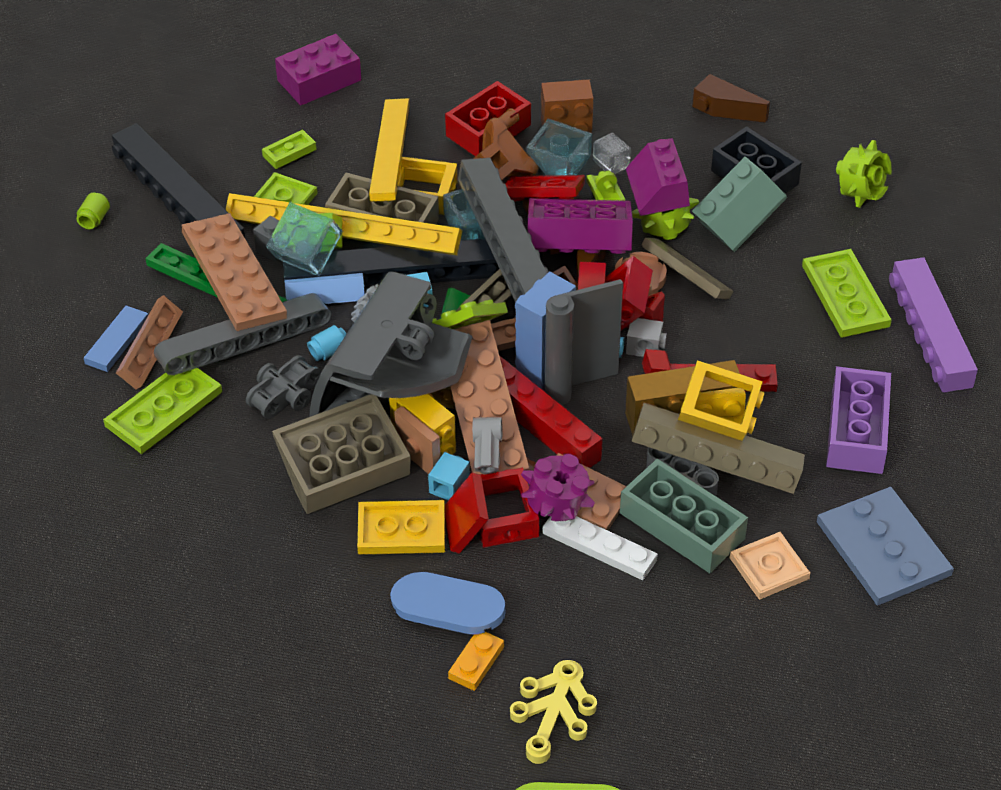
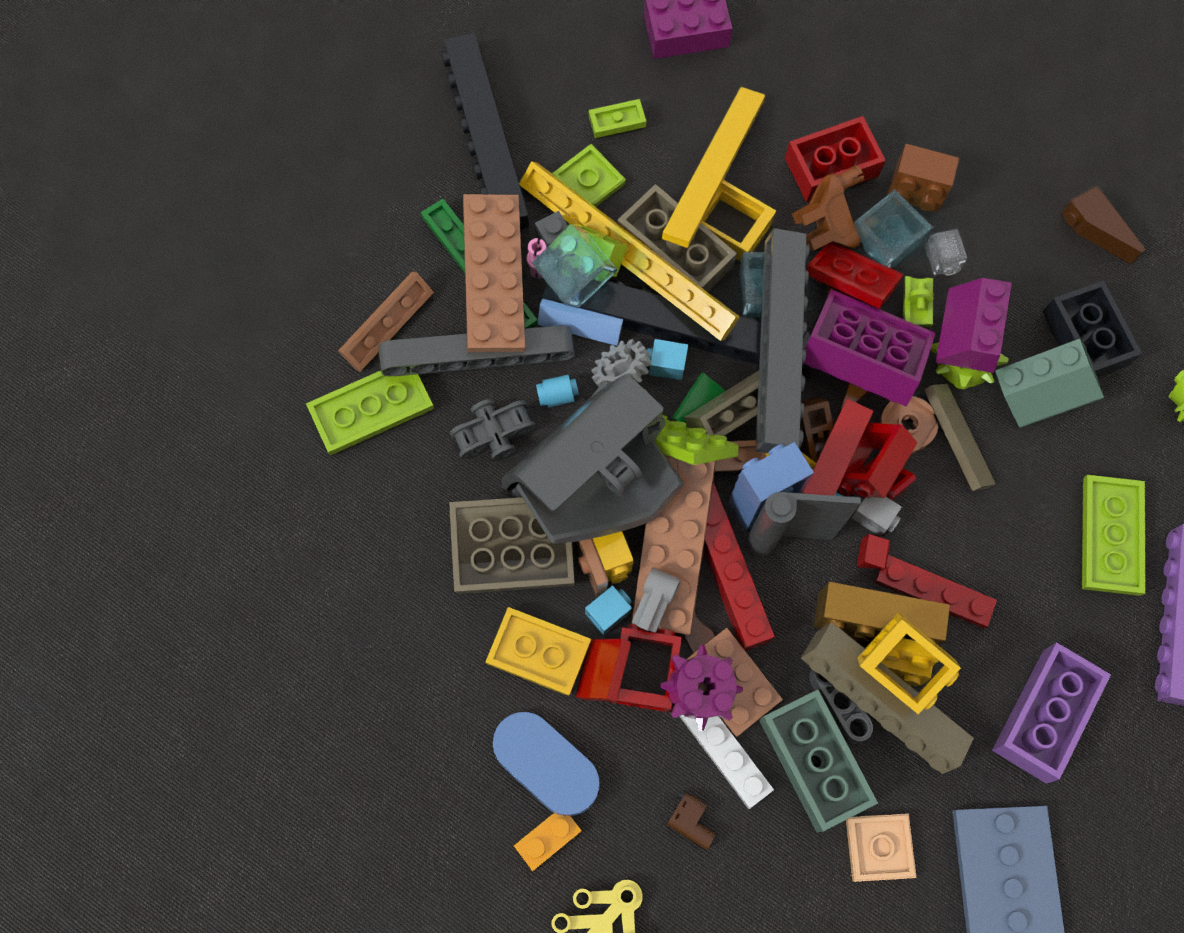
camera: 20 degrees right, 25 degrees up
(92, 210) = (393, 128): lime brick -> none
(115, 339) = (358, 300): medium blue tile -> none
(266, 258) = (534, 251): none -> bright pink pin
(592, 601) = (686, 819): none -> reddish brown piece

